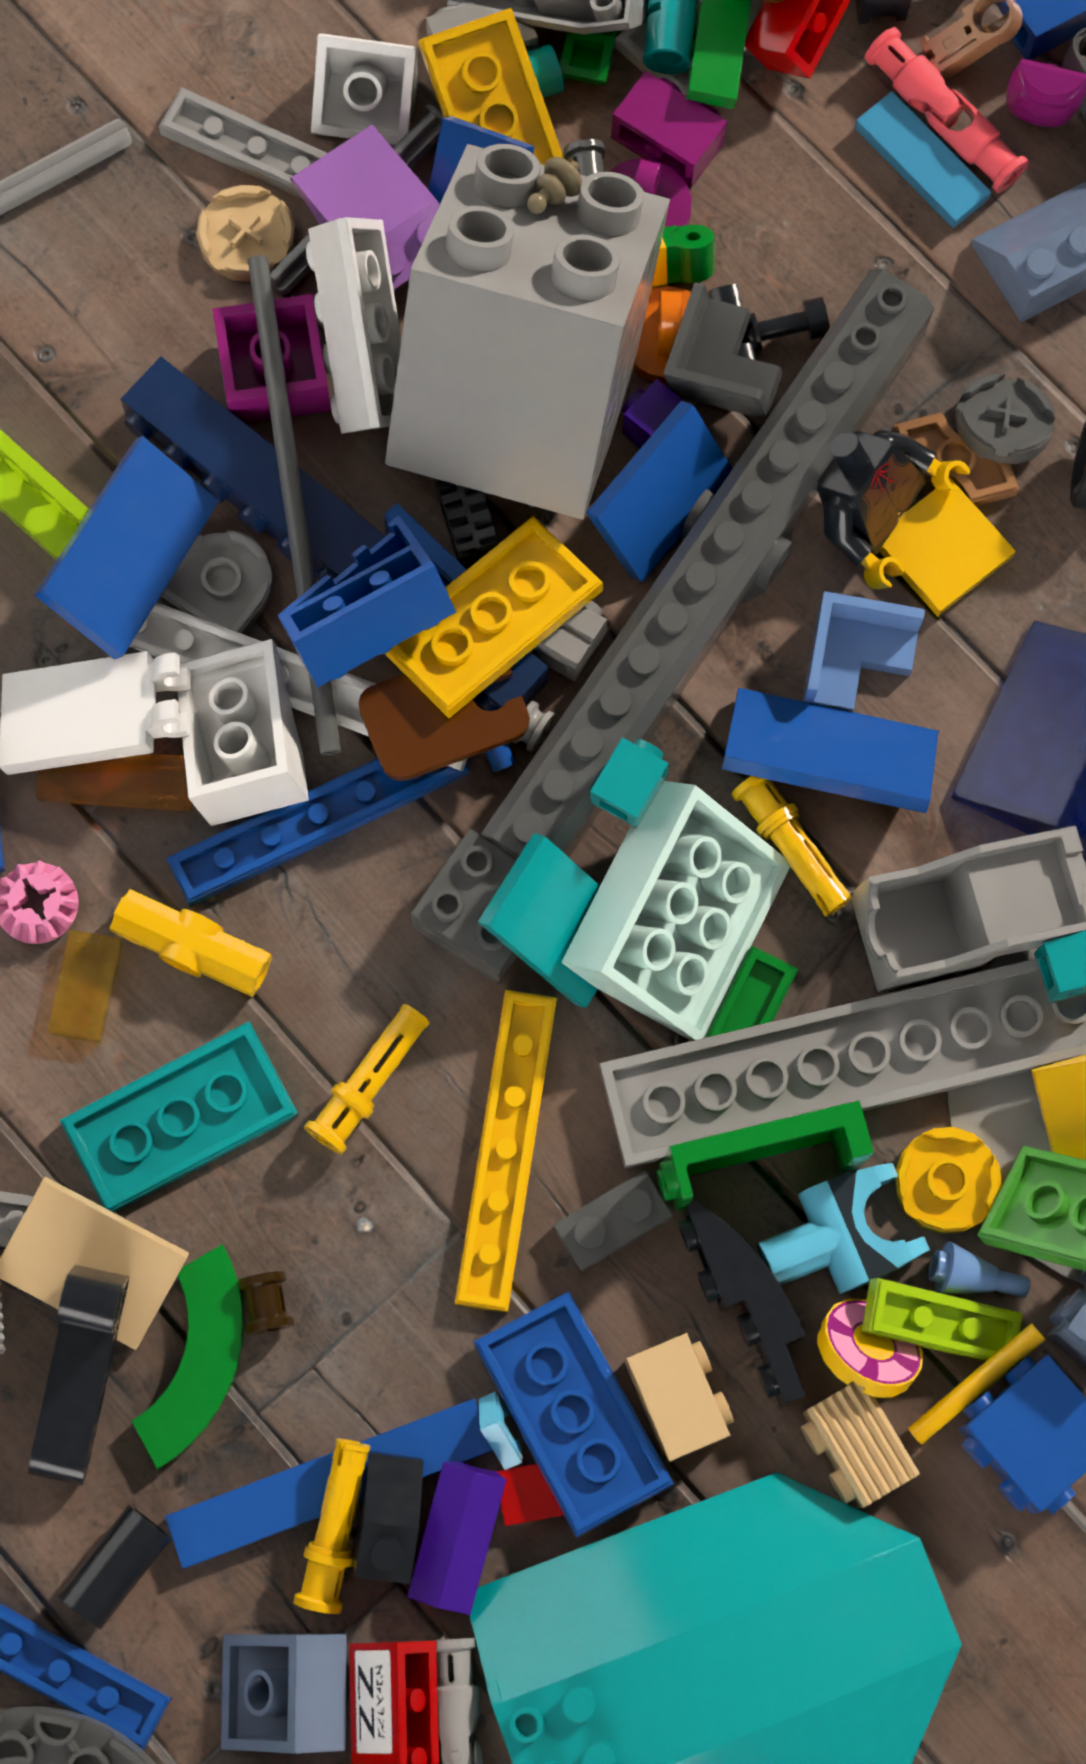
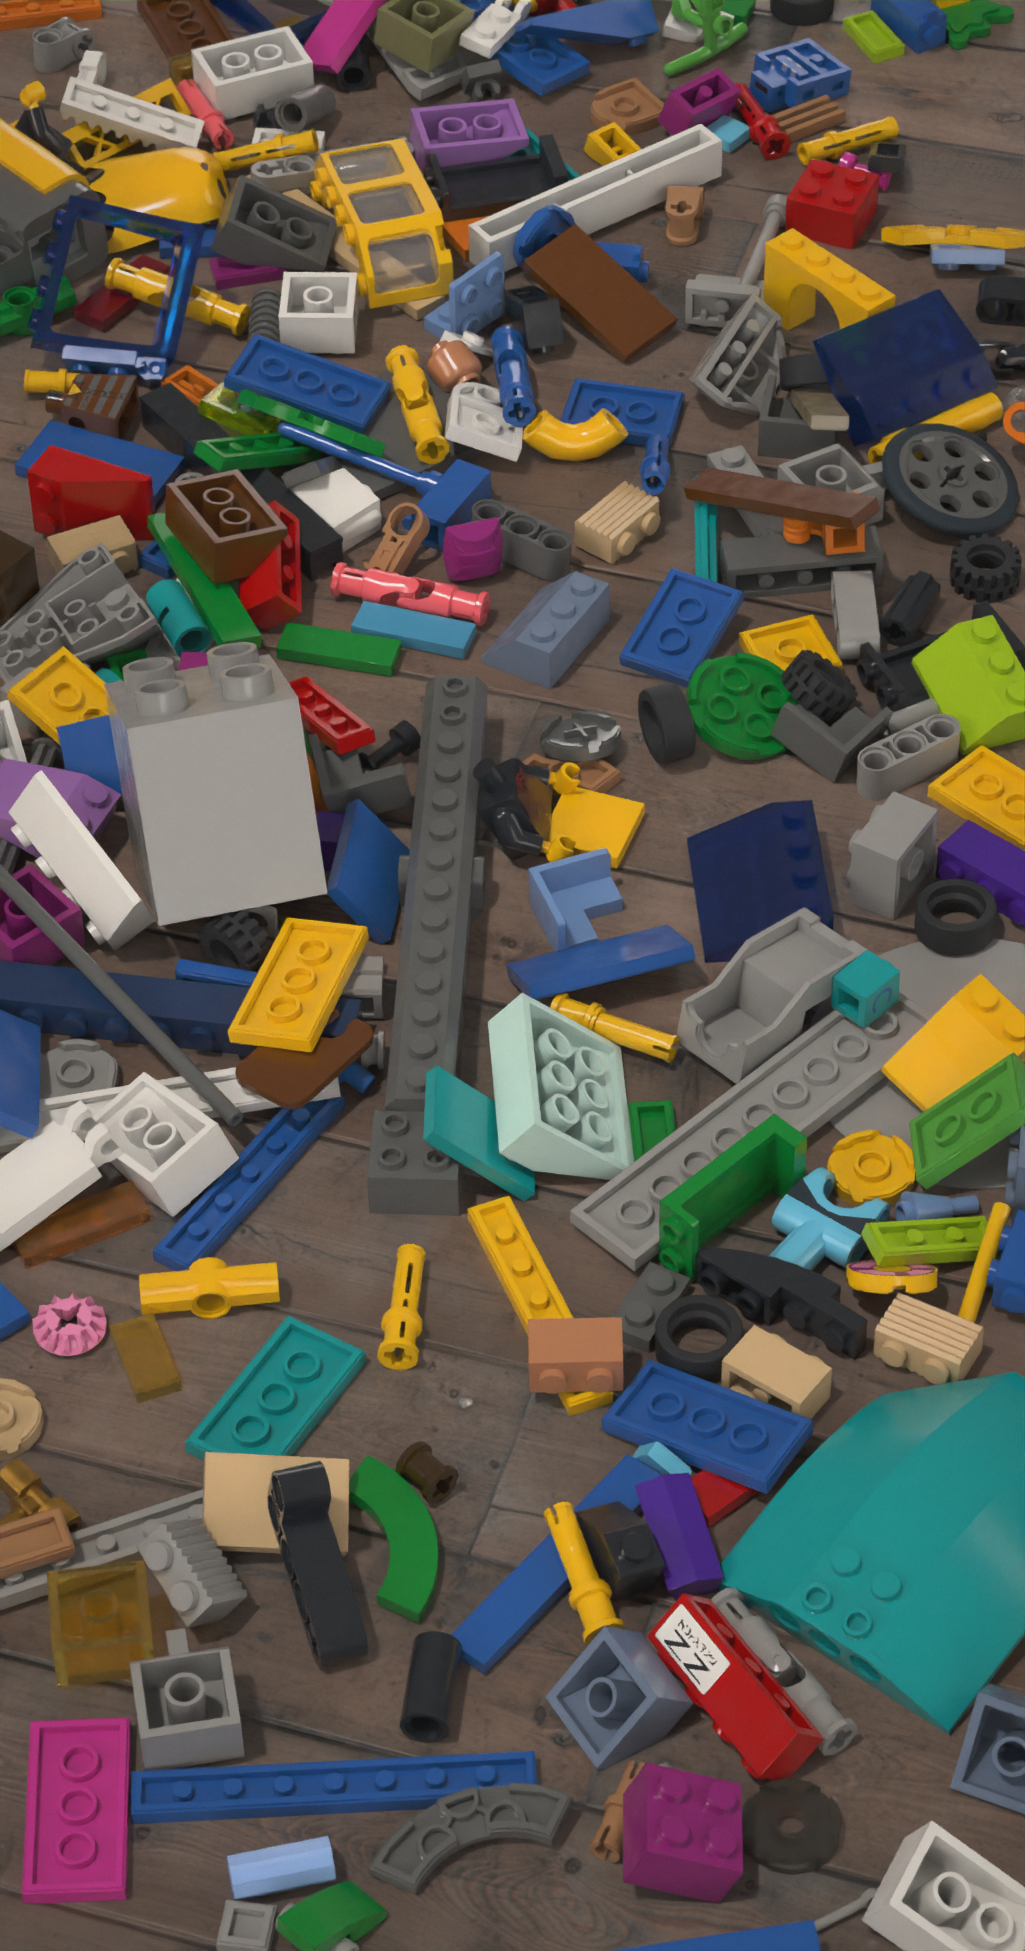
camera: 25 degrees left, 30 degrees down
(367, 607) = (210, 1000): blue wedge -> none
(486, 1261) = (575, 1355): none -> nougat brick
(556, 183) = (189, 660): dark tan hair -> none
(630, 780) = (473, 1016): teal brick -> none
(663, 1273) = (696, 1312): none -> black tyre
(744, 243) = (330, 719): none -> red tile
(827, 143) = (339, 649): none -> green tile

